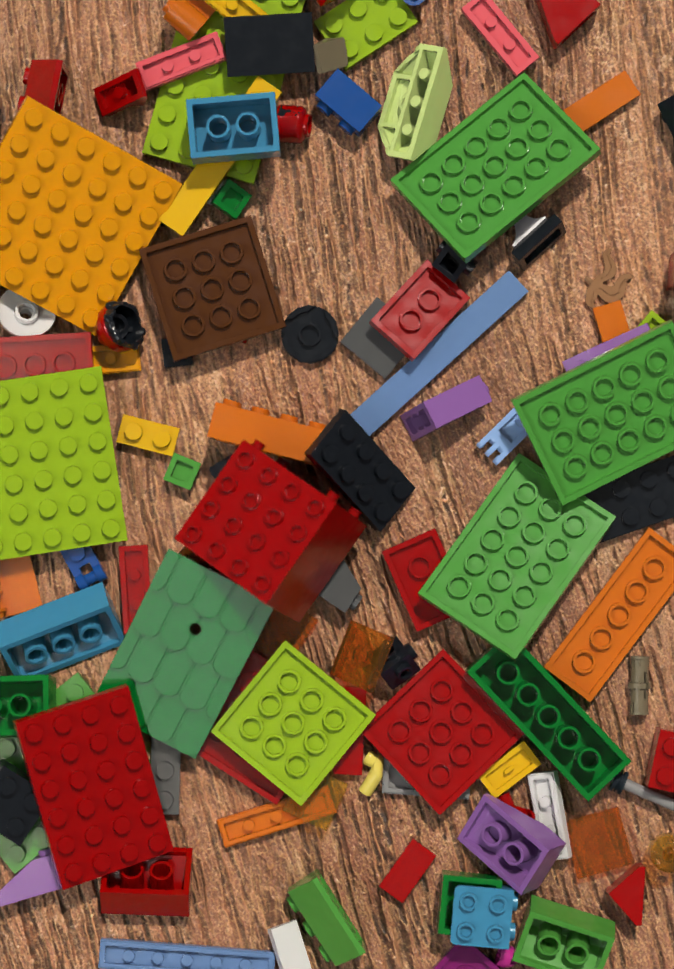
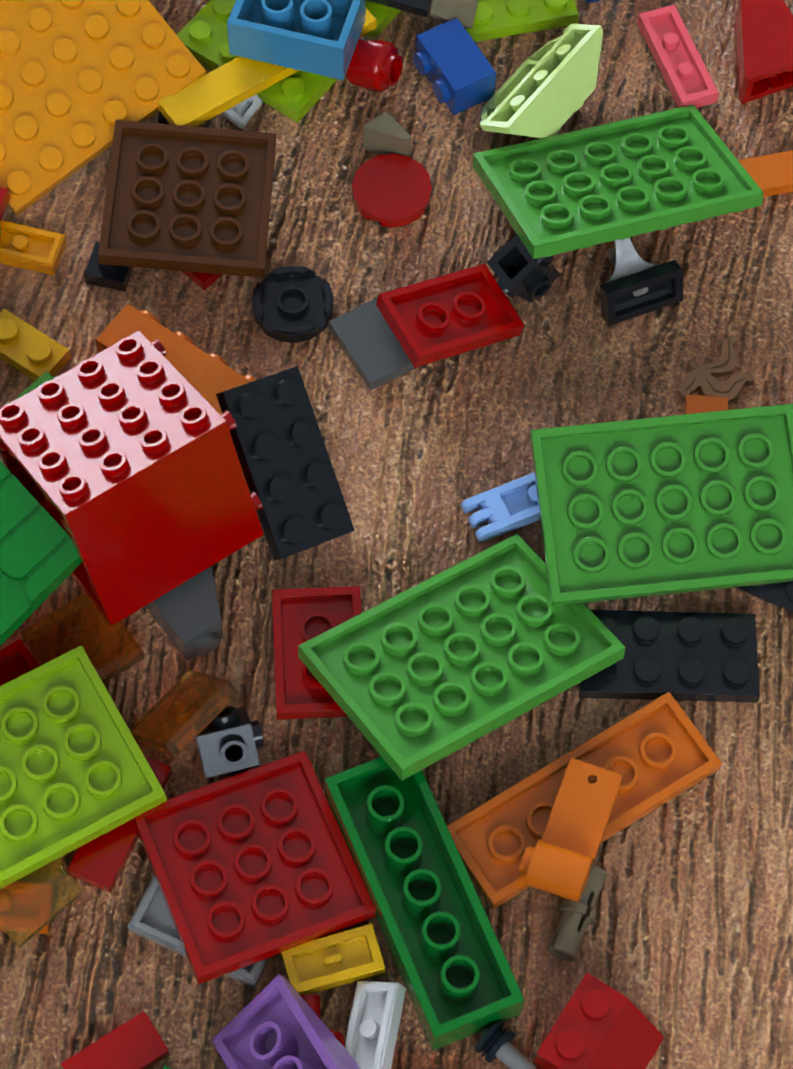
camera: 20 degrees right, 25 degrees down
(119, 326) = (47, 200): black hair -> none
(231, 199) = (260, 116): green plate -> none
(324, 181) = (386, 136): none -> dark tan slope
(341, 219) = (391, 190): none -> red tile
(375, 773) = (127, 895): light yellow arm -> none
(439, 353) = (458, 380): medium blue tile -> none
(446, 407) = (437, 440): medium lavender slope -> none
(622, 644) = (573, 831): none -> orange door

